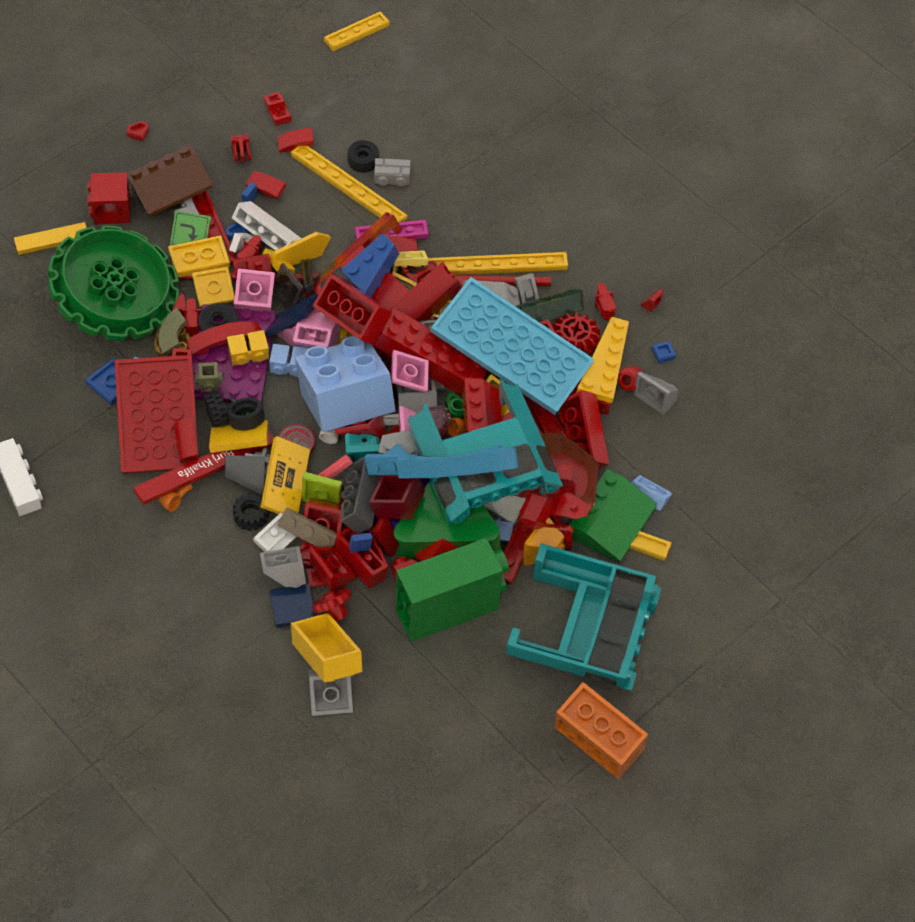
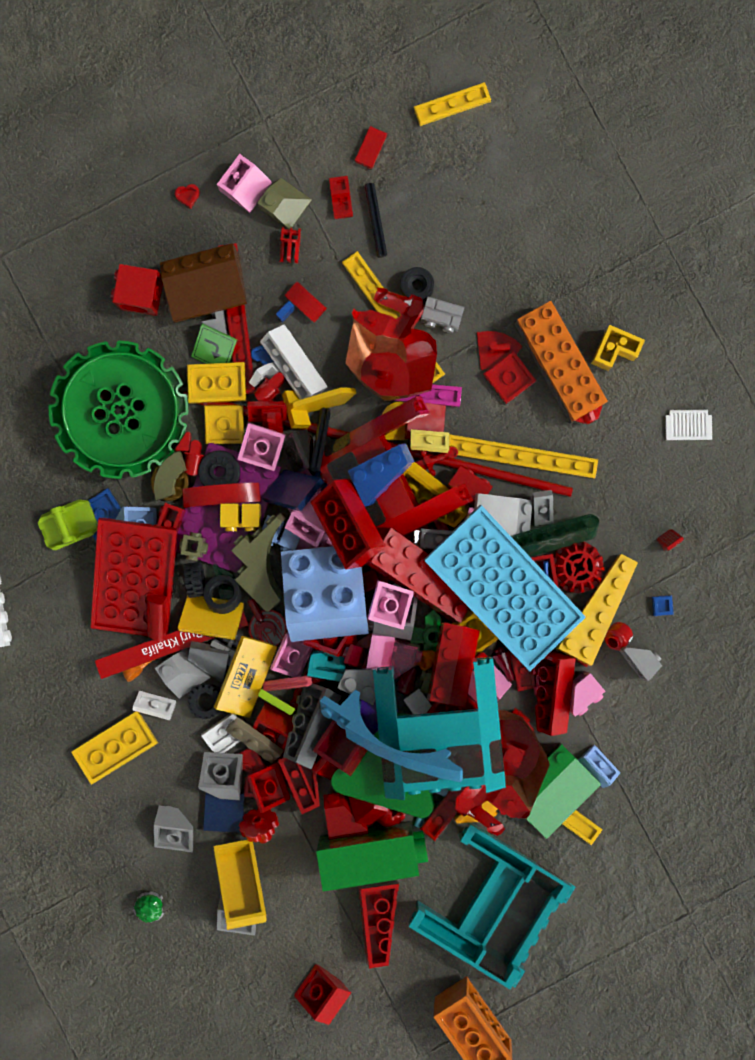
camera: 20 degrees right, 30 degrees up
(46, 239) = (72, 321): yellow tile -> none
(80, 390) = (68, 524): none -> lime shield
(167, 570) = (114, 747): none -> yellow plate
(188, 109) = (244, 183): none -> bright pink slope
(192, 525) = (154, 705): none -> white plate
(218, 492) = (180, 674): none -> light grey slope
(226, 121) = (283, 203): none -> olive slope
(236, 703) = (149, 907): none -> green piece
(246, 629) = (172, 830): none -> light grey slope
(269, 373) = (256, 572): none -> olive arch
(290, 140) = (350, 246): red slope -> none
(291, 435) = (259, 617): none -> dark red piece
(294, 71) = (371, 147): none -> red tile
(313, 119) = (375, 220): none -> black axle
(324, 452) = (291, 657): none -> bright pink slope
(353, 206) = (392, 348): none -> red piece
(360, 542) = (297, 781): blue tile -> none
(385, 426) = (355, 655): none -> dark red slope
(438, 746) = (322, 994): none -> red slope
(448, 191) = (494, 347): none -> red shield
(466, 208) = (509, 377): none -> red tile
(473, 659) = (377, 913): none -> red wedge
(509, 185) = (561, 364): none -> orange piece
(554, 162) = (615, 343): none -> yellow brick
(605, 302) = (620, 535): red arm -> none
(615, 423) = (584, 692): none -> bright pink slope
(638, 215) = (688, 425): none -> white window

